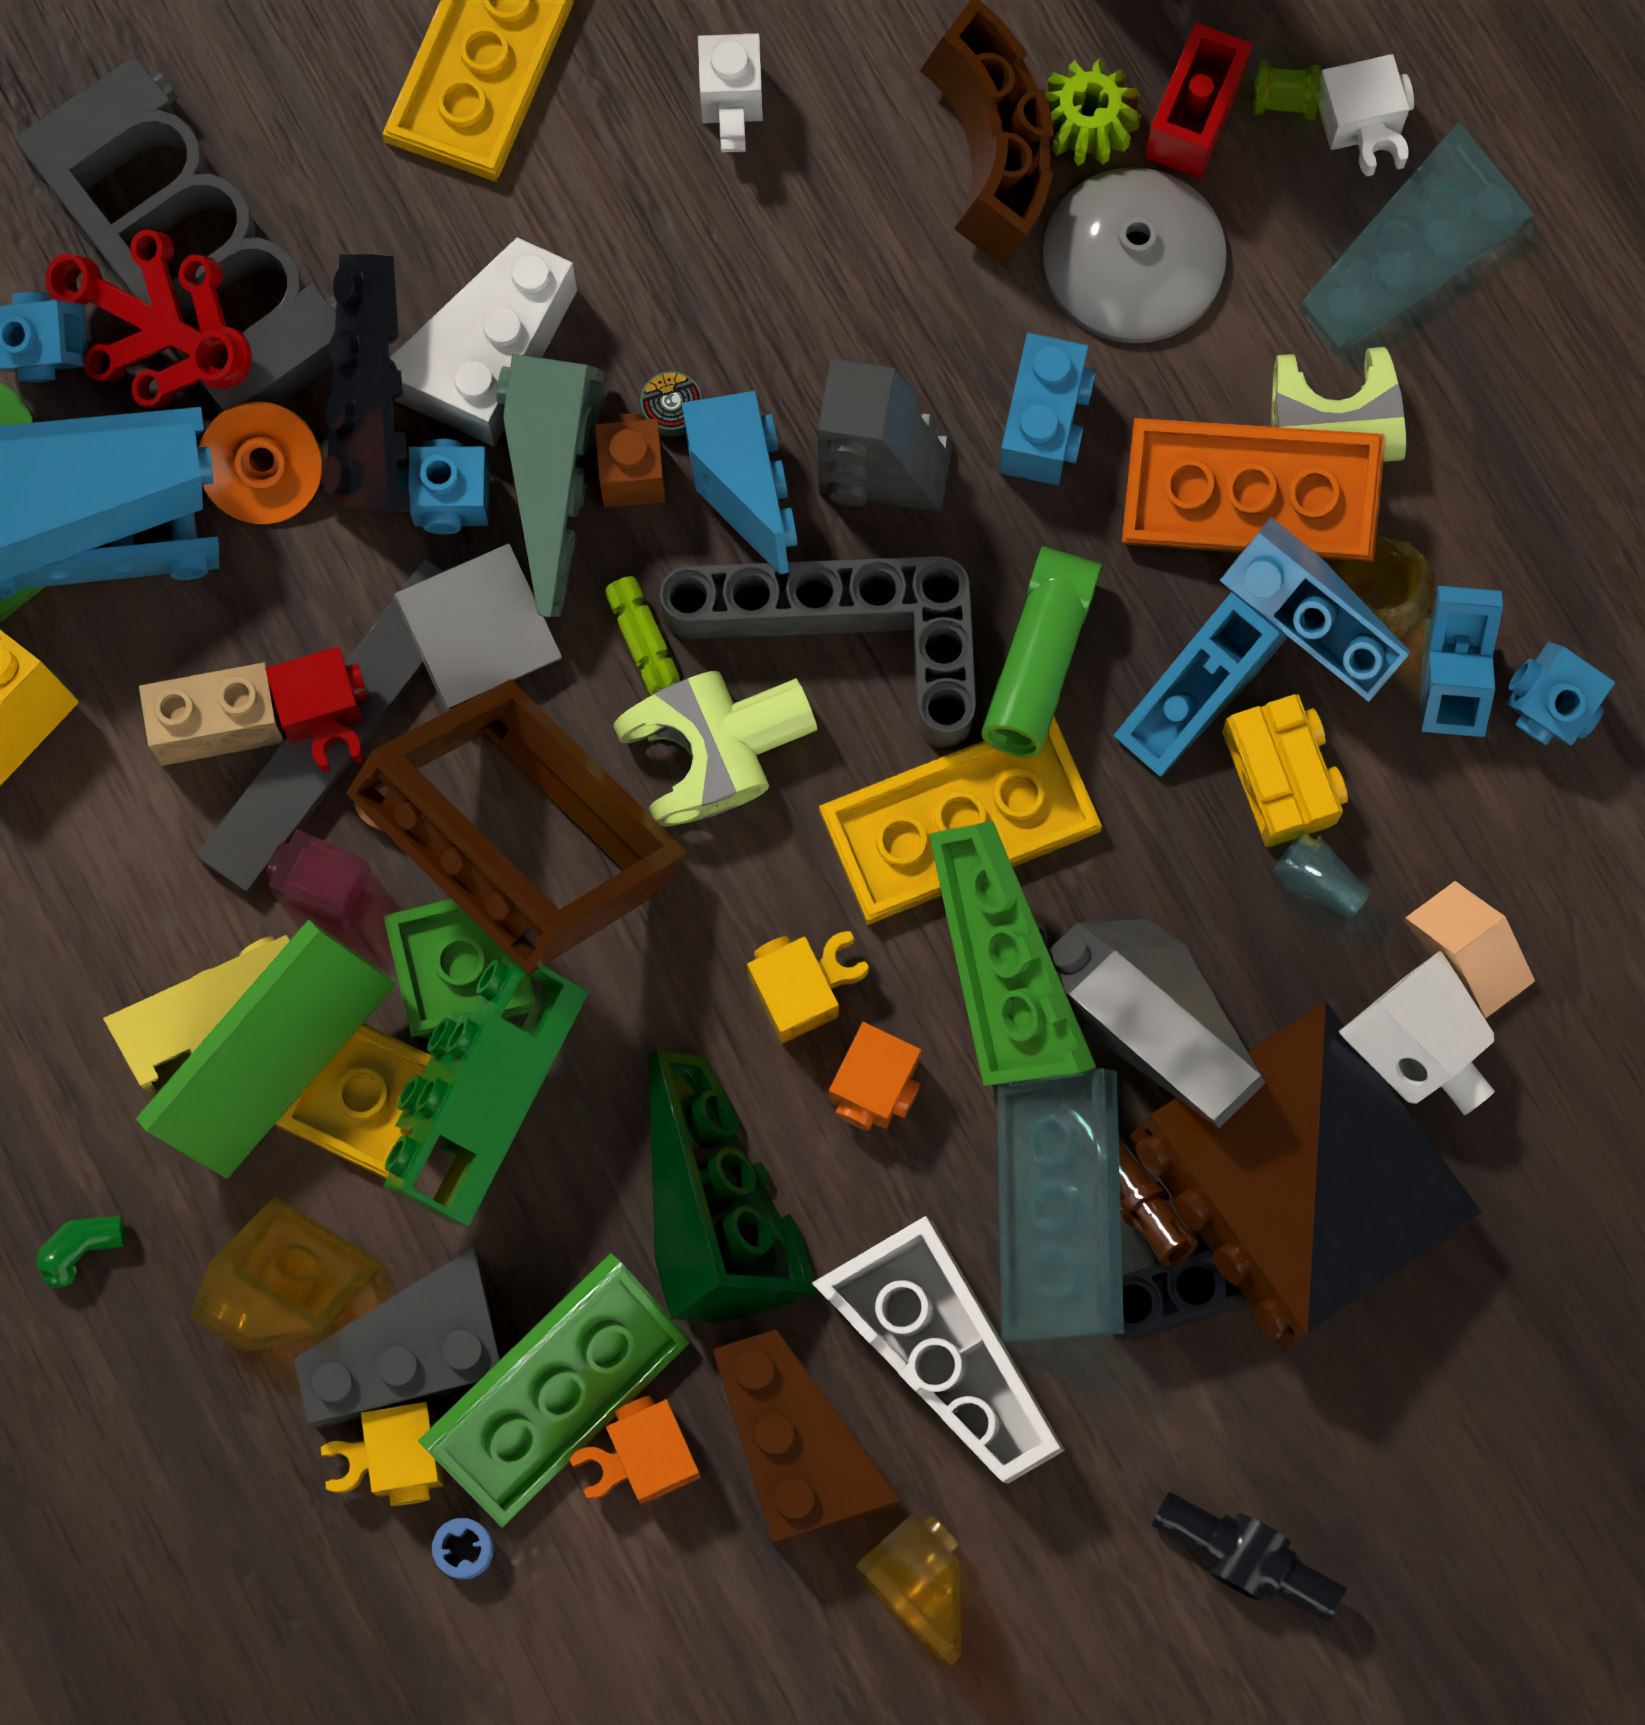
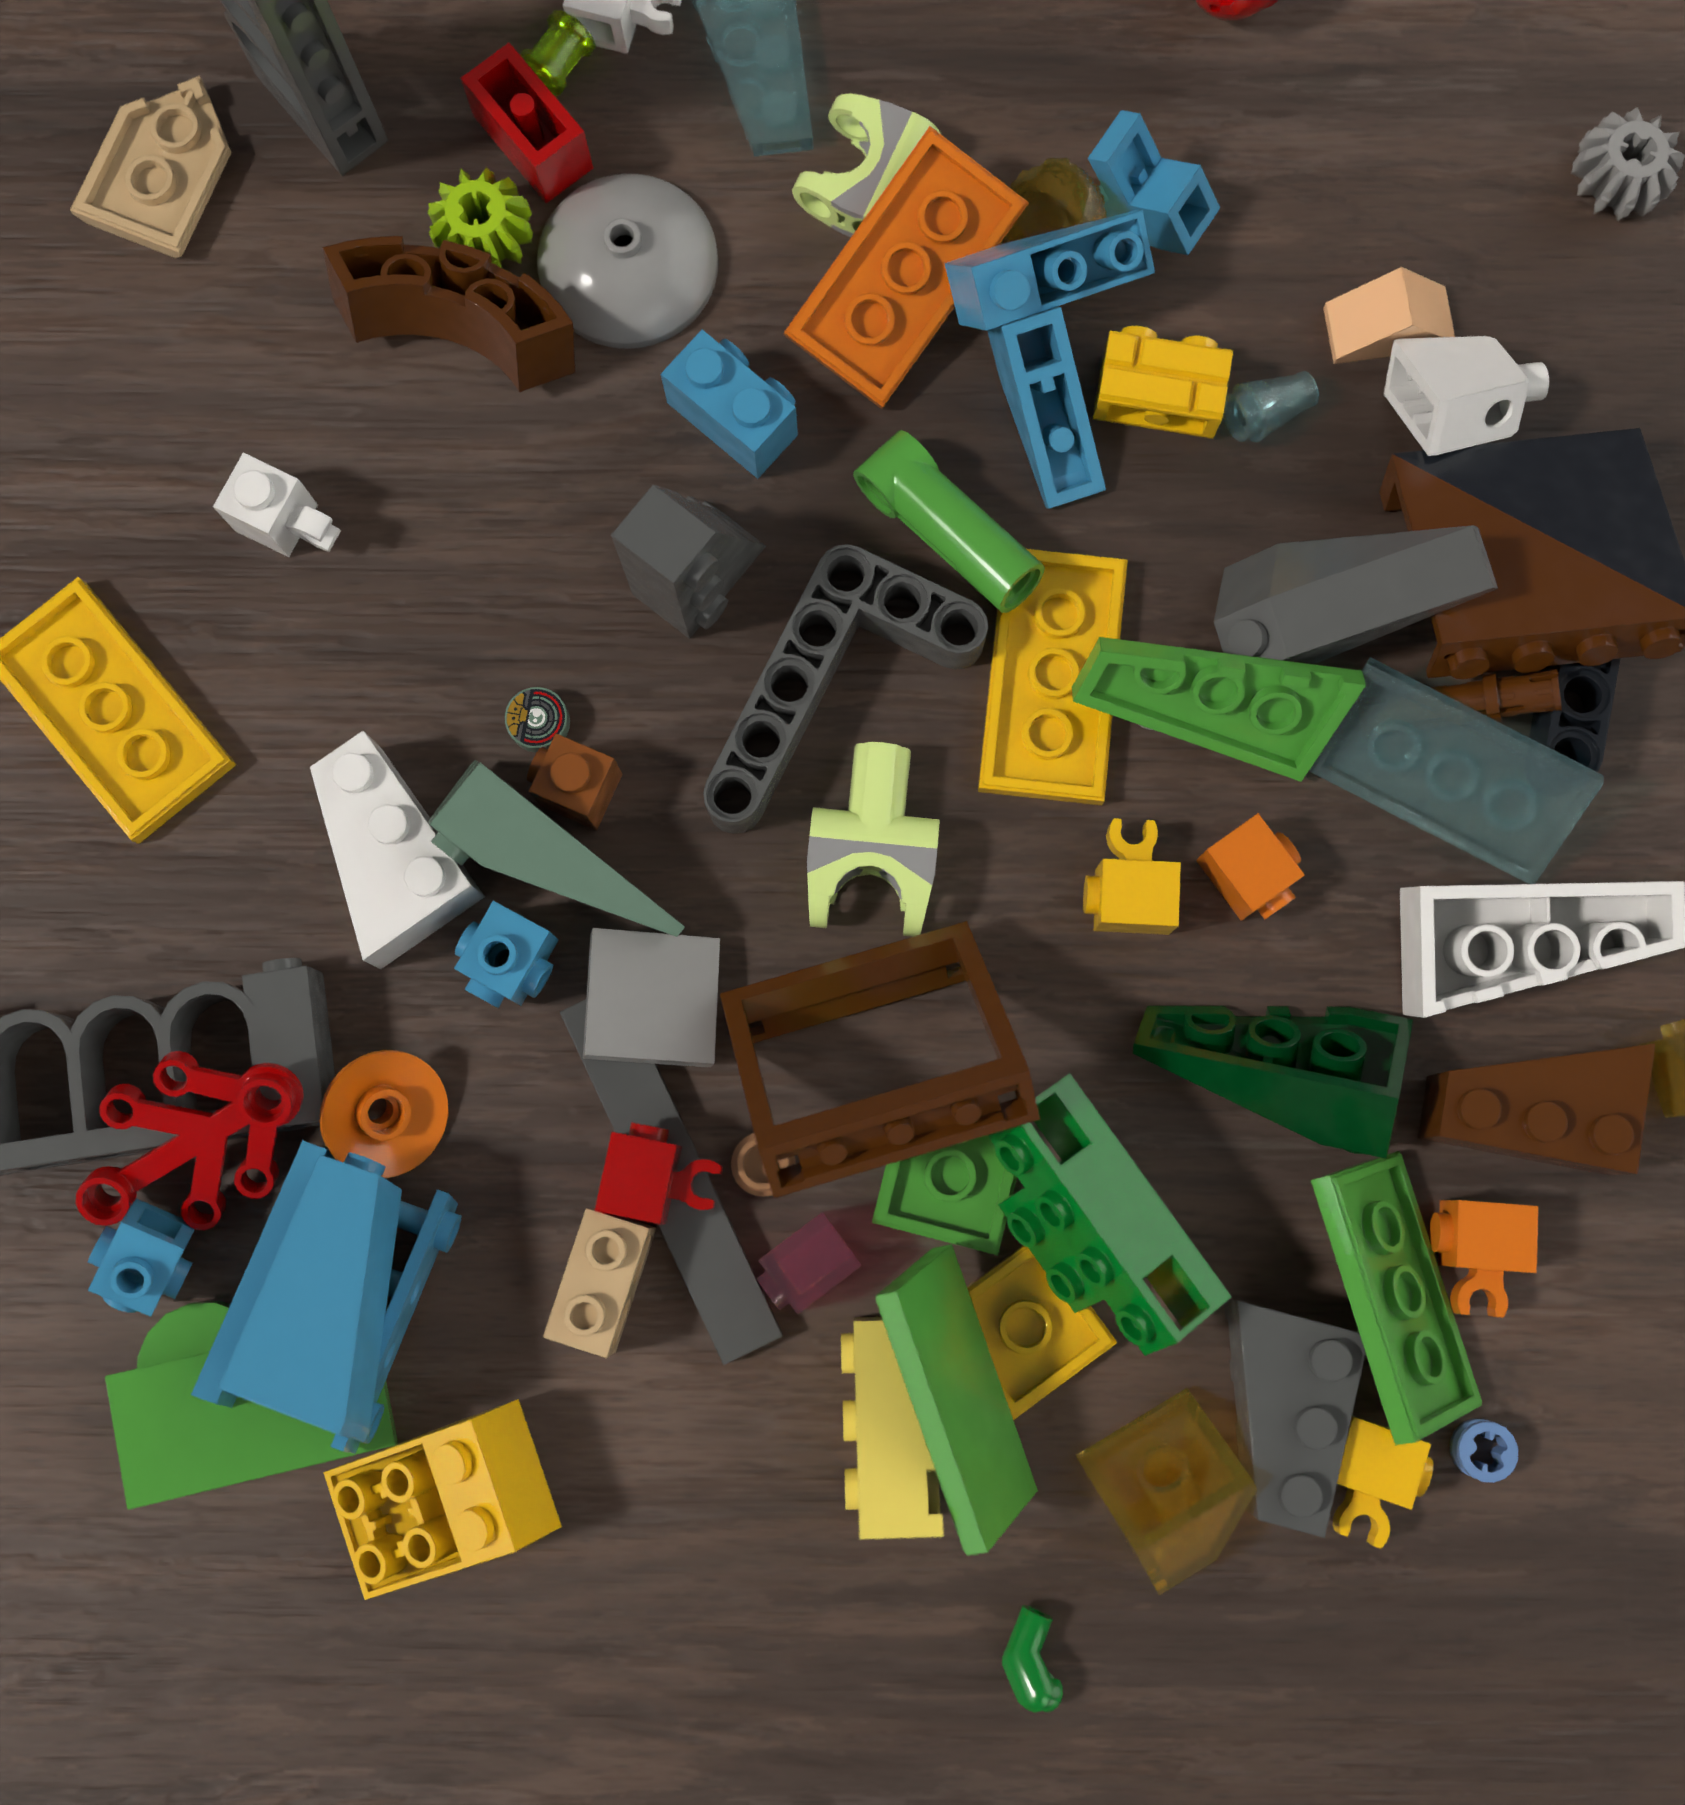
camera: 60 degrees left, 5 degrees up
(364, 385) = (375, 980): black wing -> none
(641, 634) = (738, 857): lime axle -> none
(734, 471) = (640, 693): dark azure slope -> none
(1578, 693) = (1223, 124): dark azure brick -> none

